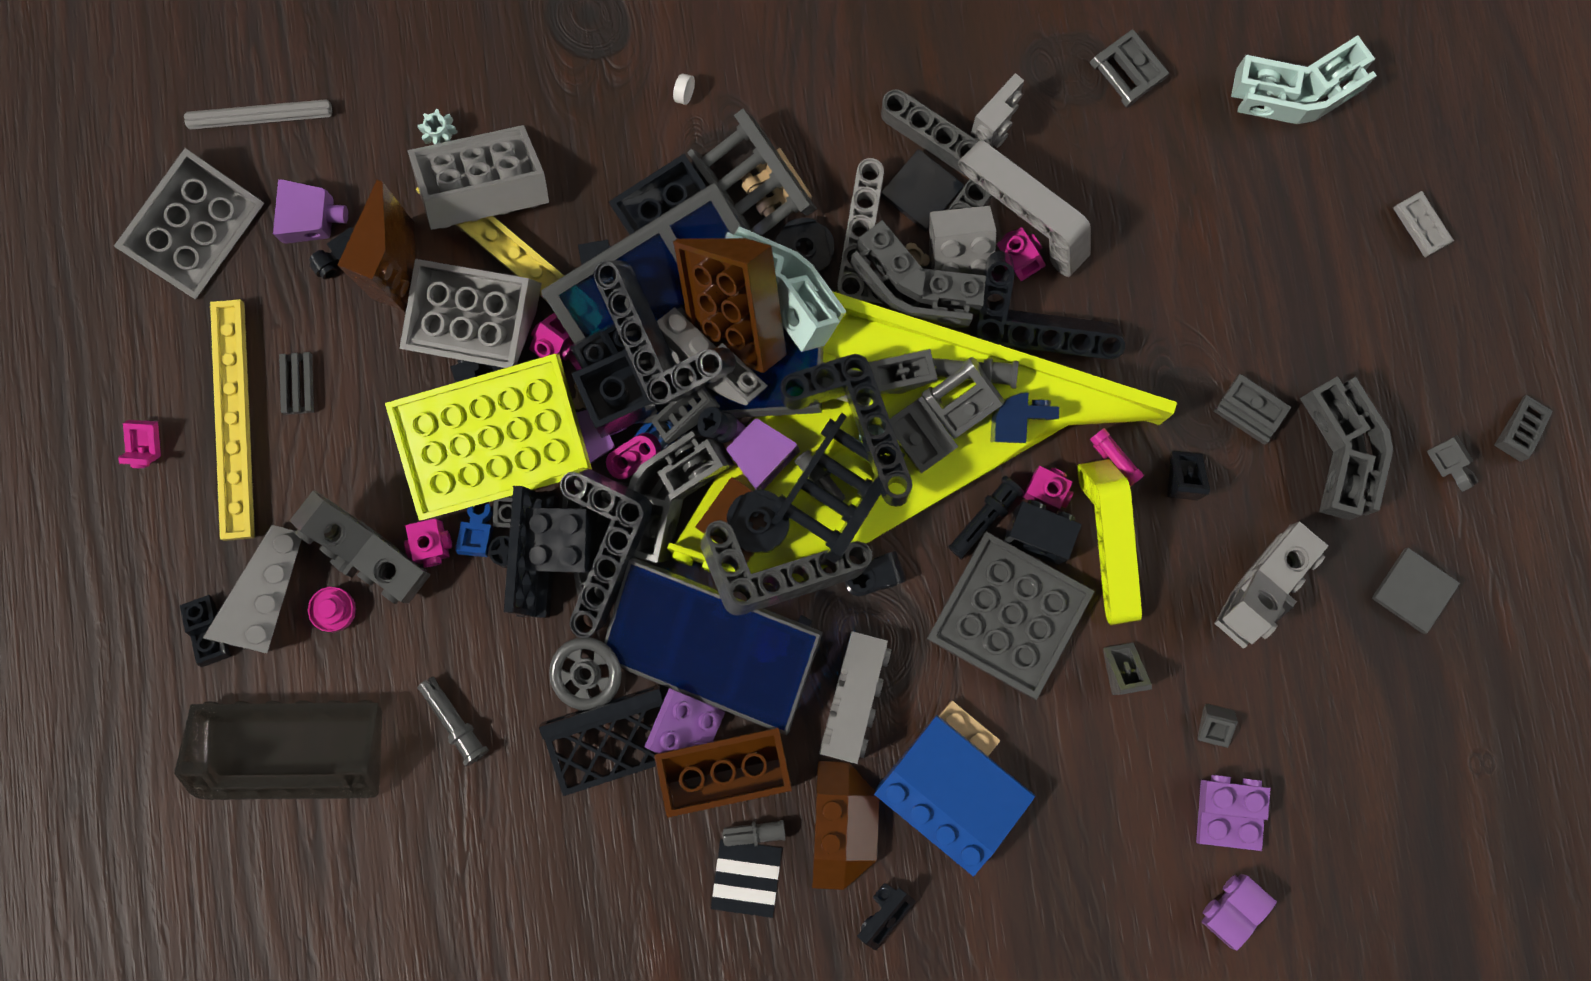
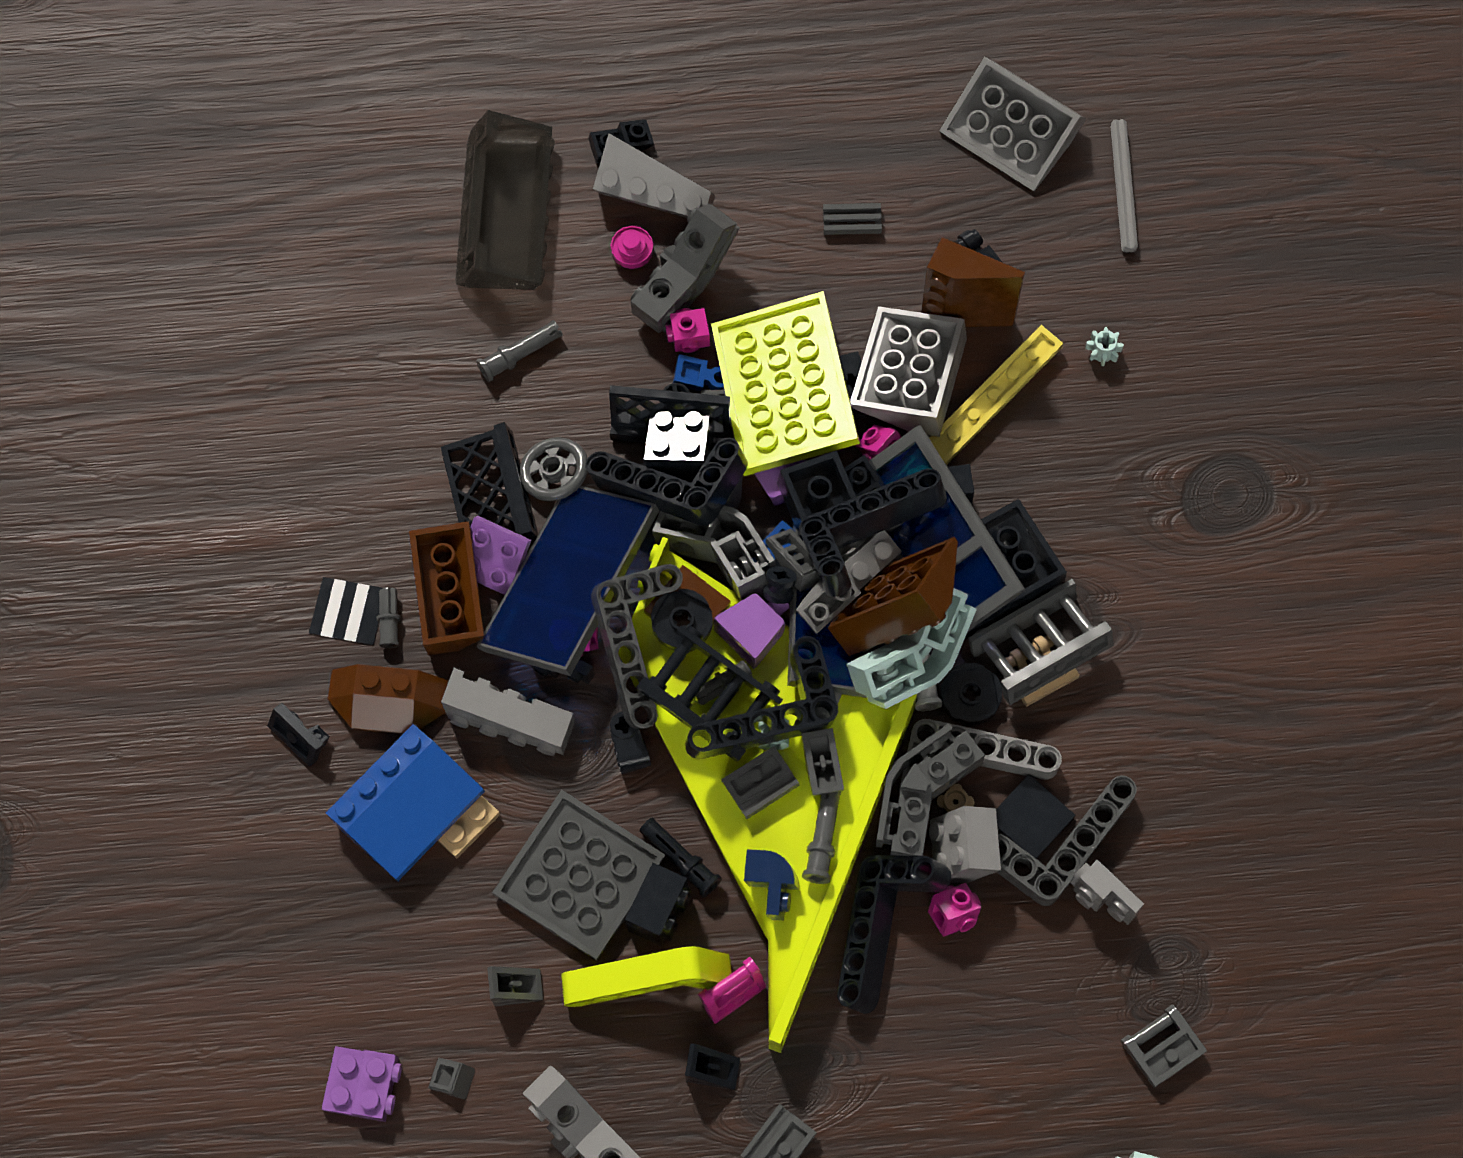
camera: 95 degrees right, 10 degrees down
(141, 443) = (799, 85): dark pink bracket -> none
(232, 420) = (819, 162): light yellow plate -> none
(305, 212) = (1020, 225): medium lavender torso -> none
(478, 177) = (1050, 380): light grey slope -> none
(634, 453) = (762, 515): dark pink plate -> none
(683, 89) = (1144, 582): white tile -> none
(968, 407) = (784, 827): dark grey plate -> none
(1049, 488) = (705, 922): dark pink brick -> none
(1061, 223) = (1000, 912): light grey beam -> none
(1238, 911) = (265, 1078): medium lavender brick -> none

